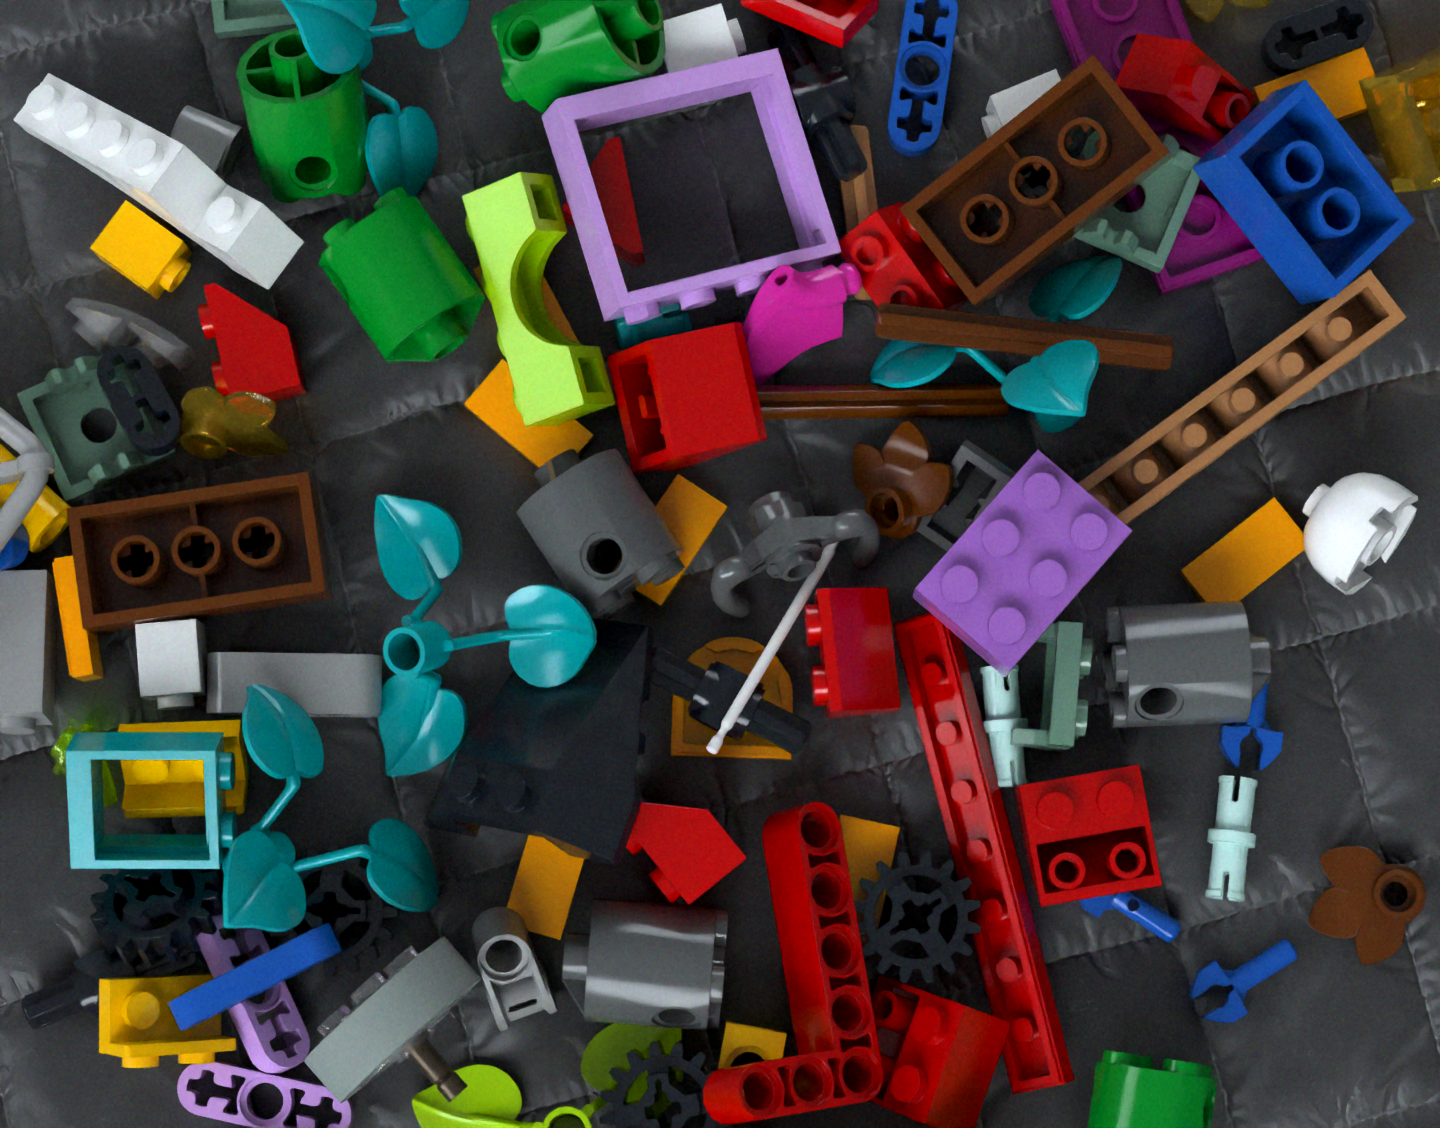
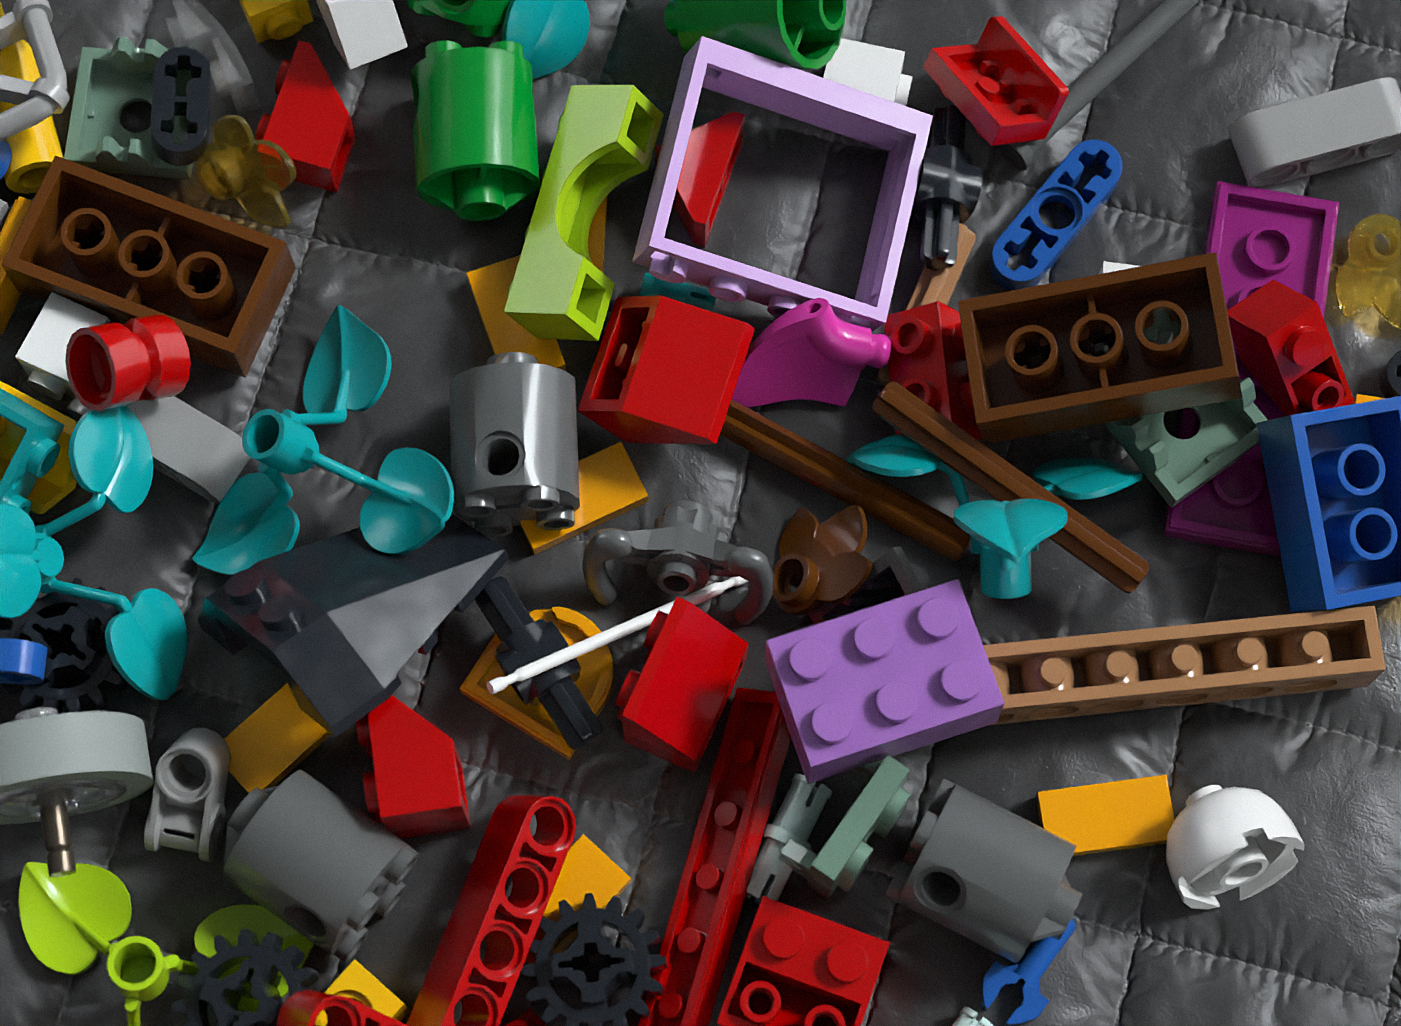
camera: 30 degrees right, 10 degrees down
(248, 653) = (127, 362): none -> red wheel

